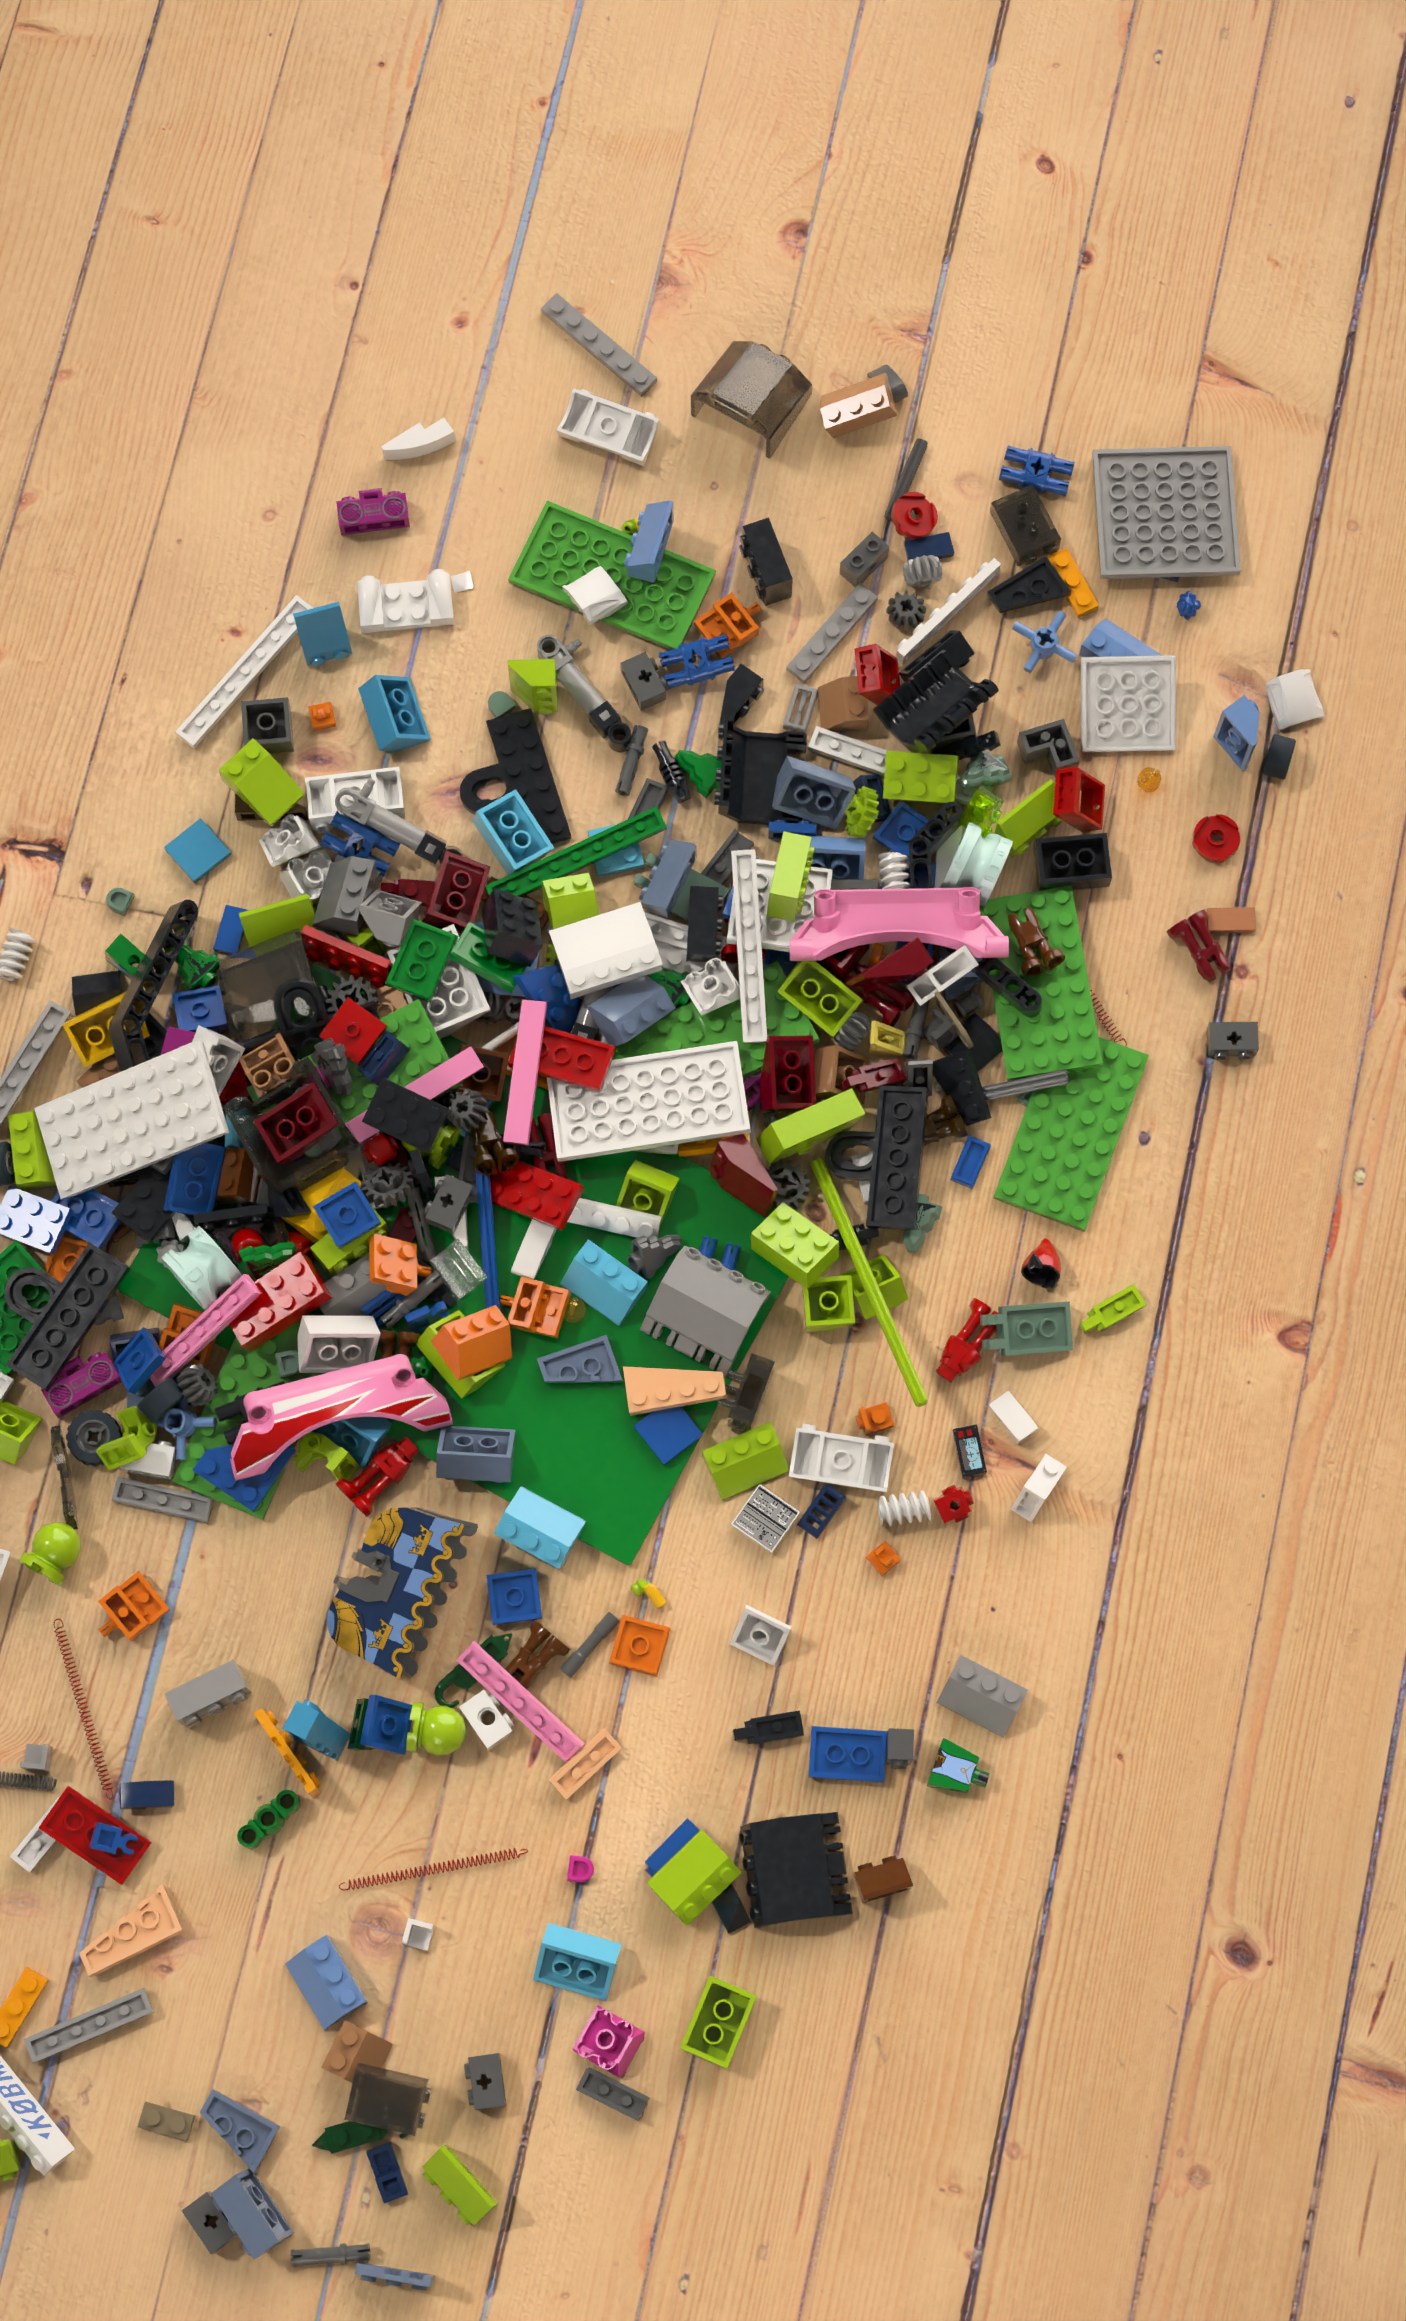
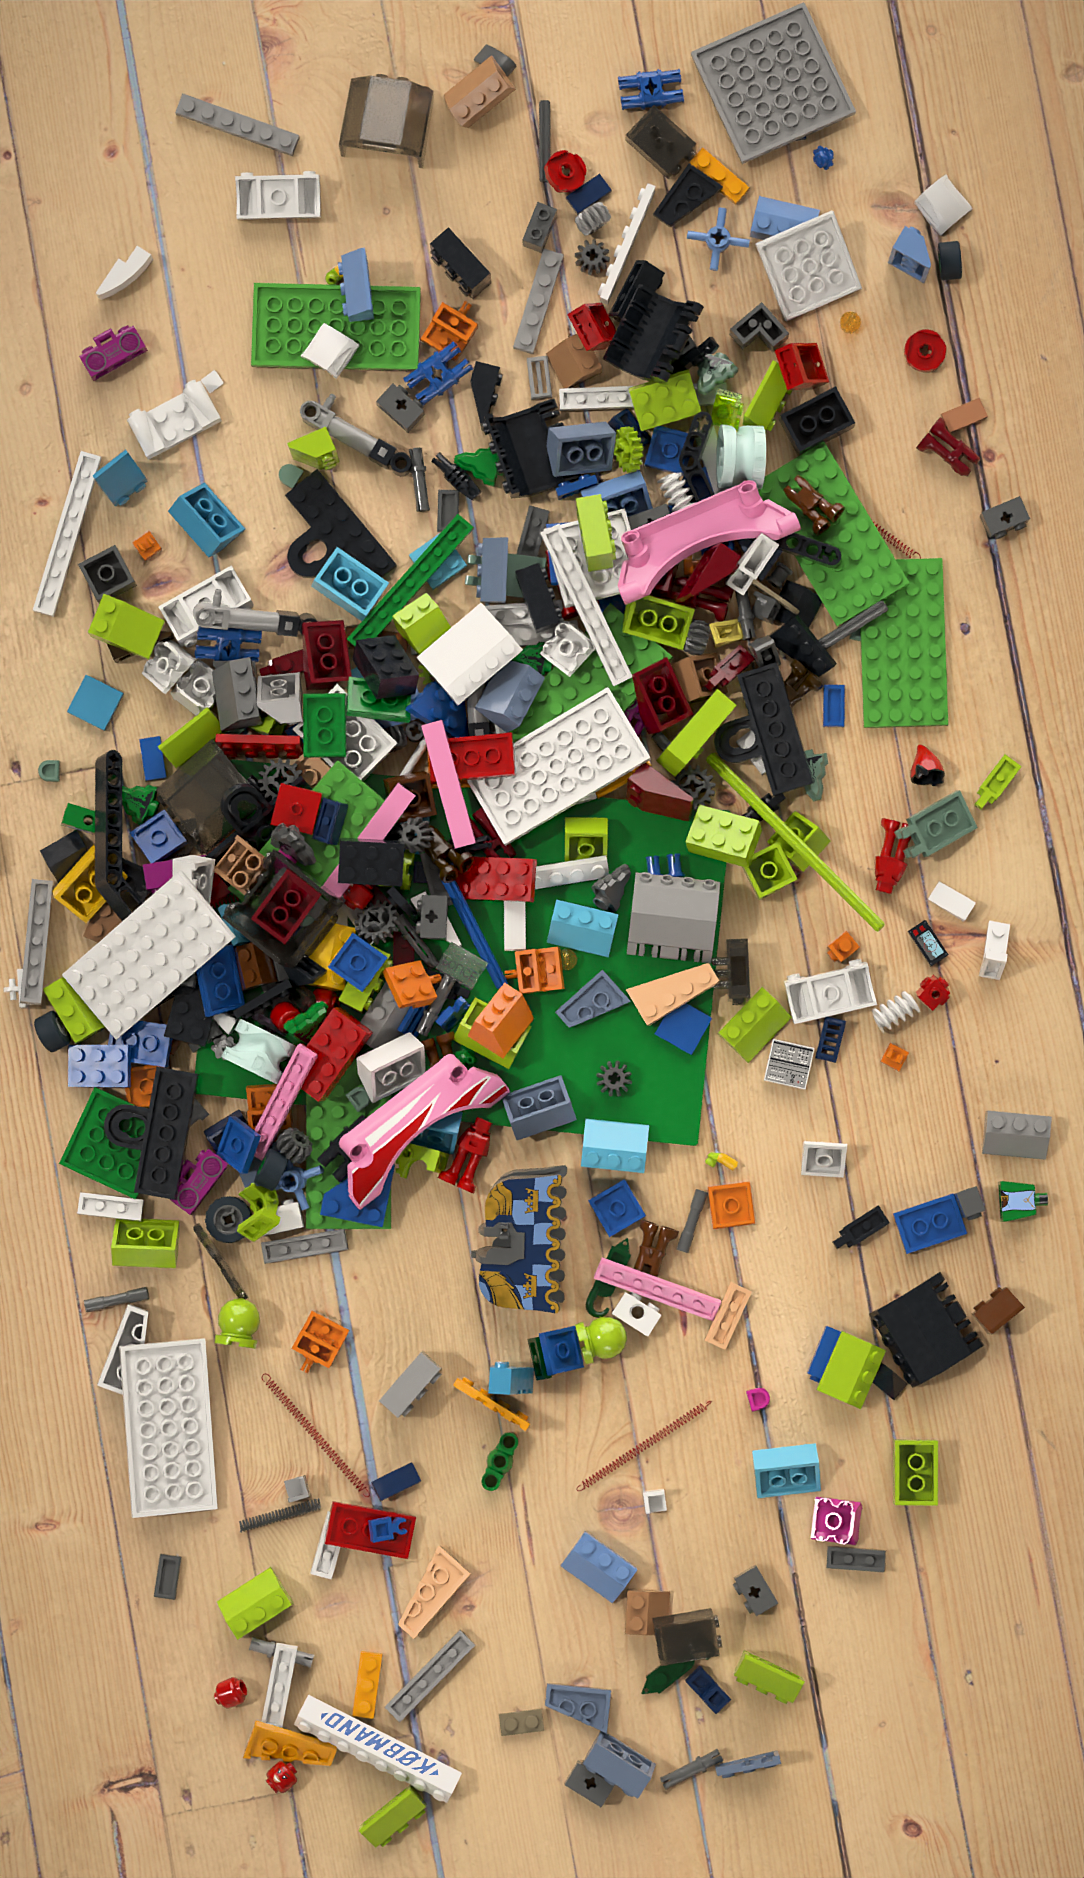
camera: 15 degrees left, 10 degrees up
(570, 1464) = (609, 1072): none -> dark grey gear

